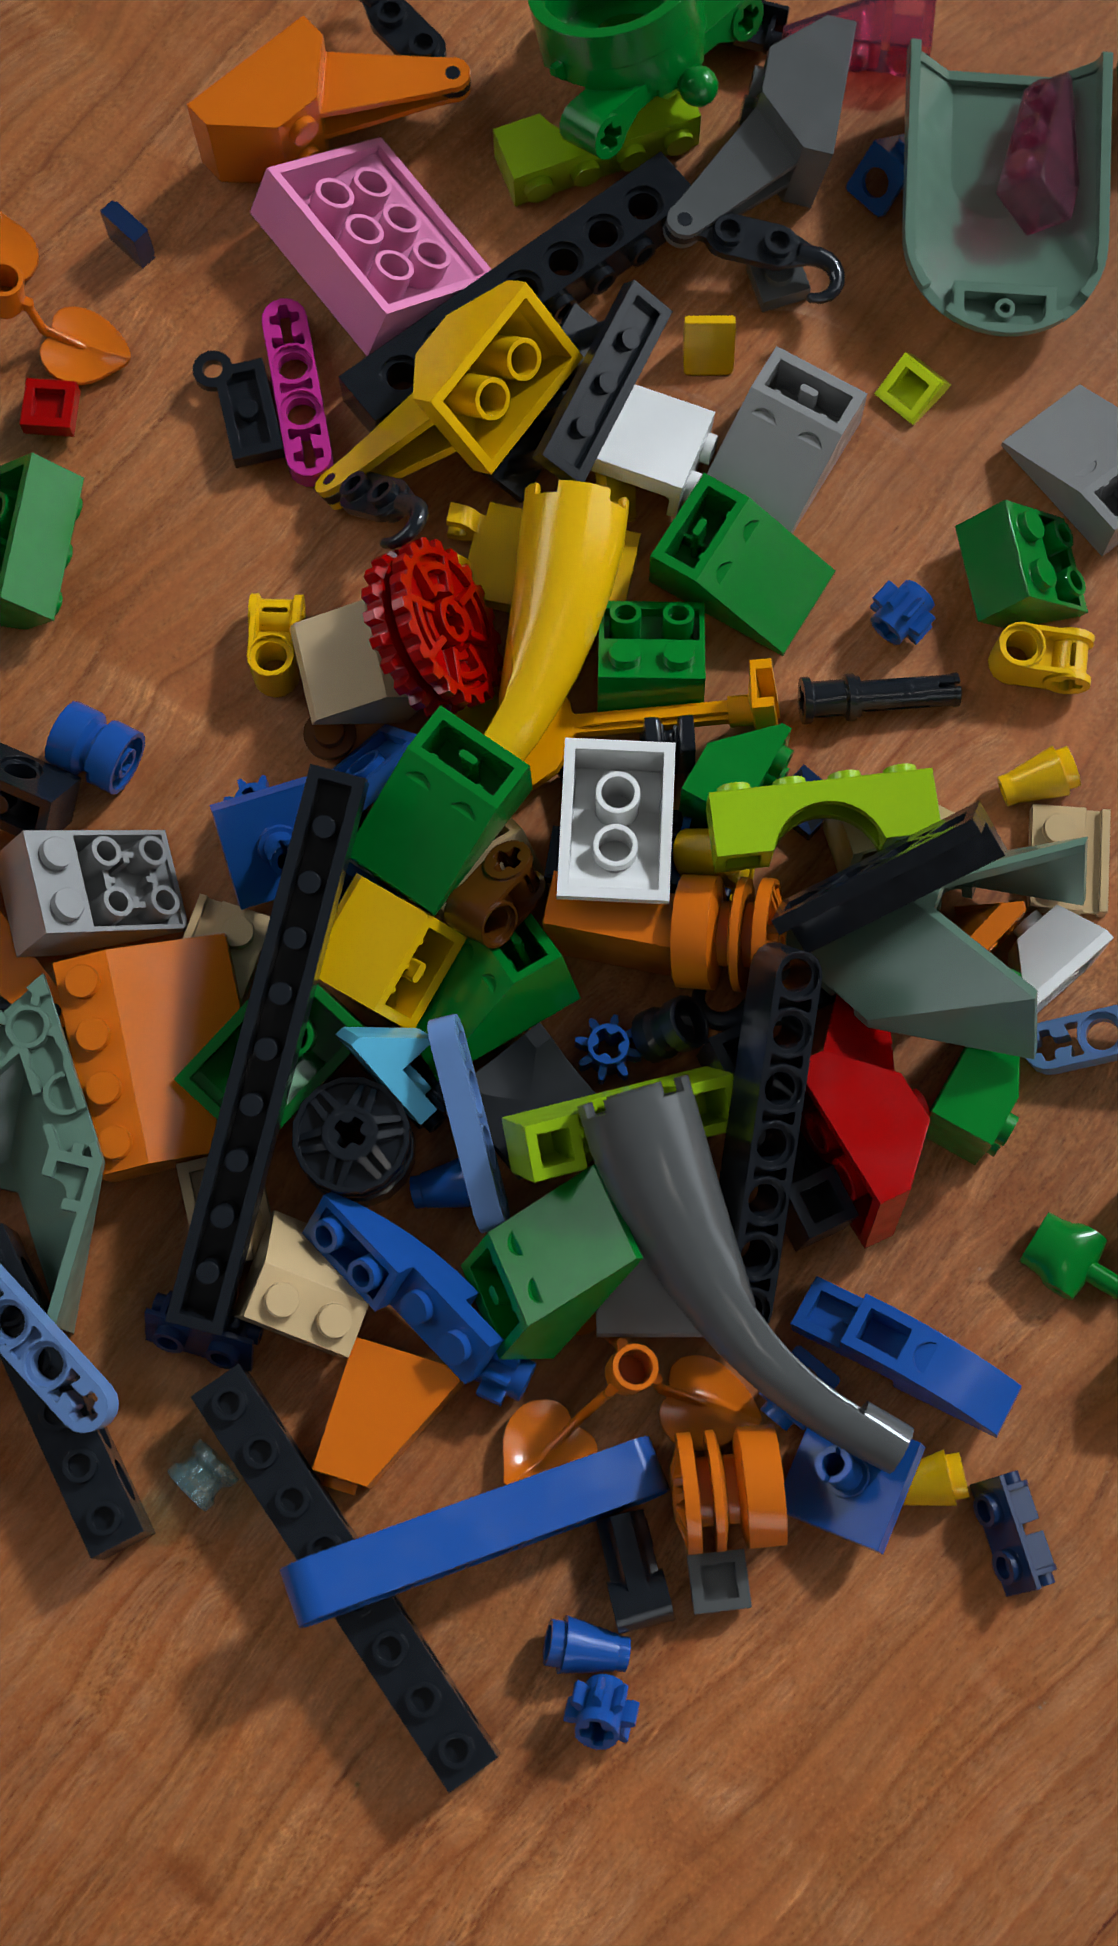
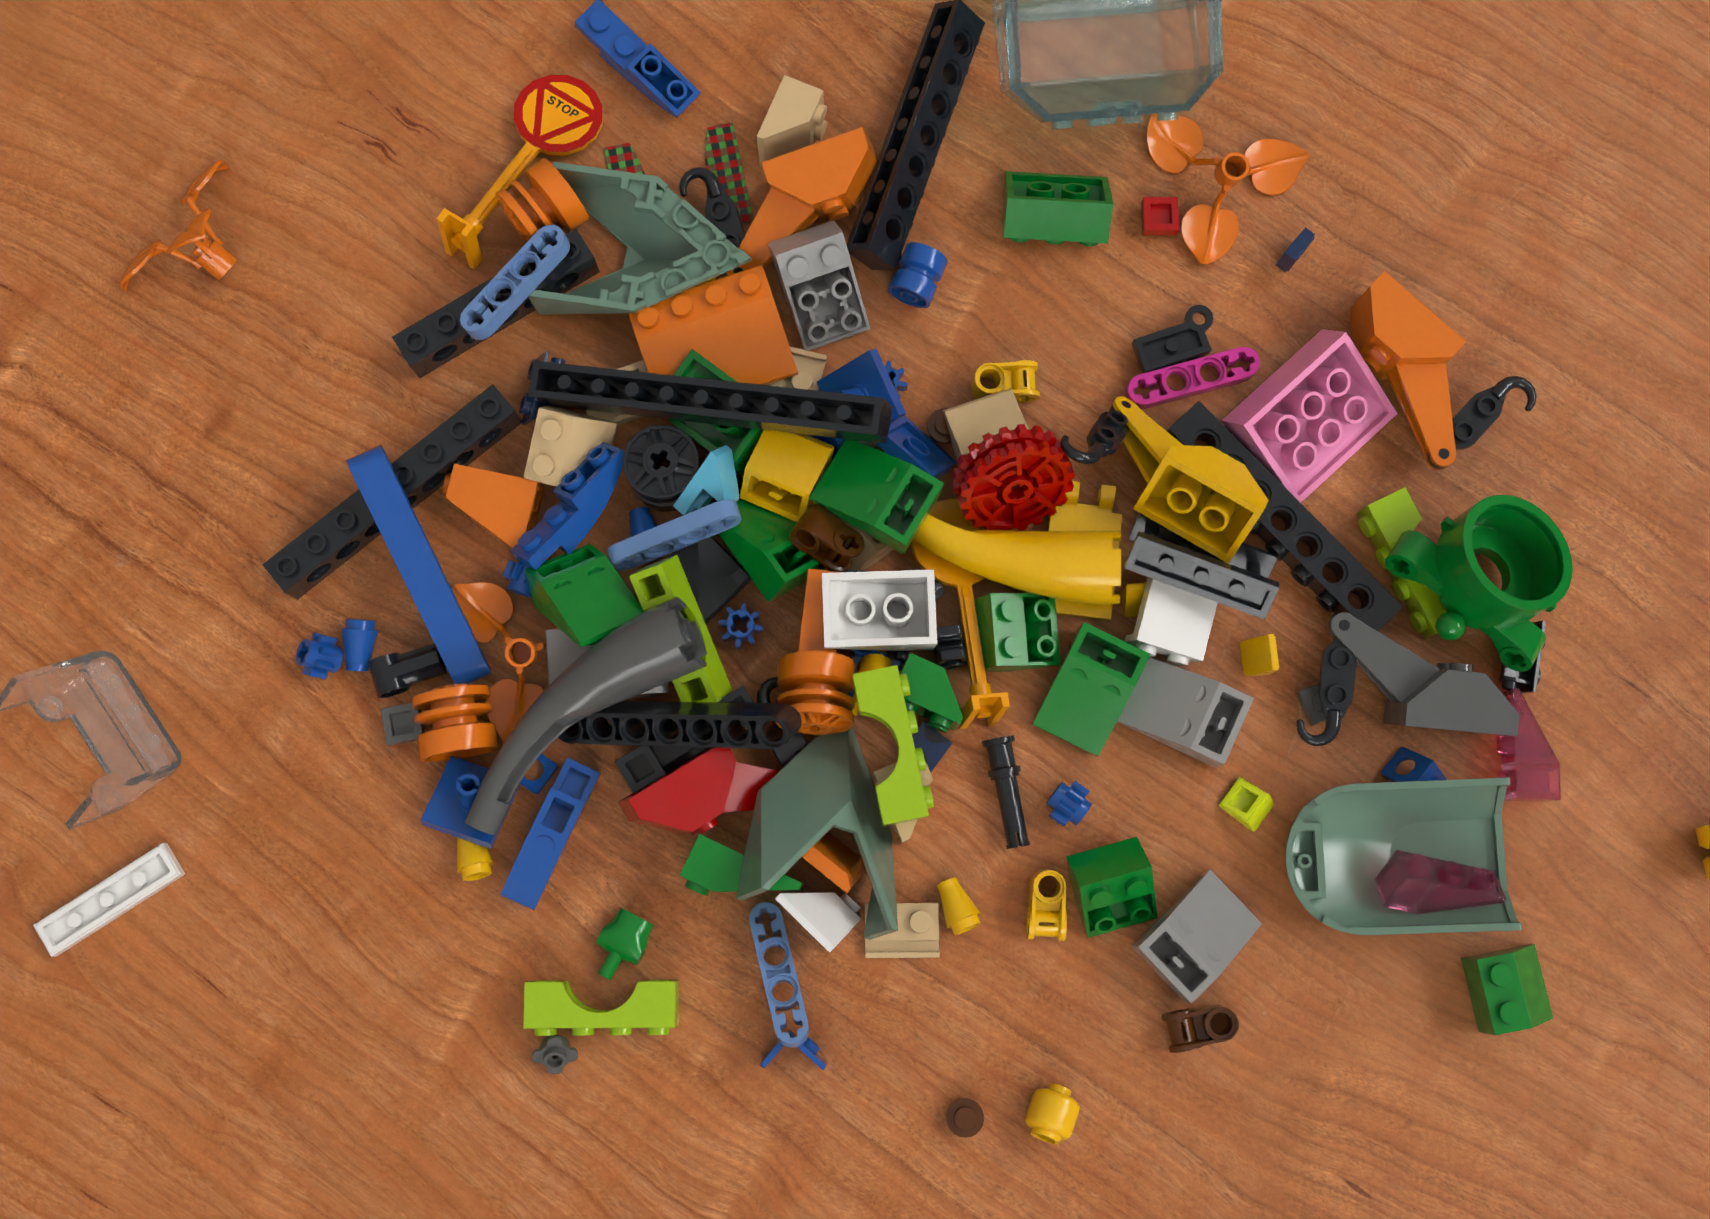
camera: 80 degrees right, 5 degrees up
(203, 1475) = (449, 398): clear light blue wheel -> none
(670, 1029) = (754, 663): black wheel -> none
(891, 878) = (850, 792): black fence -> none
(1018, 1559) = (428, 914): dark blue hinge -> none

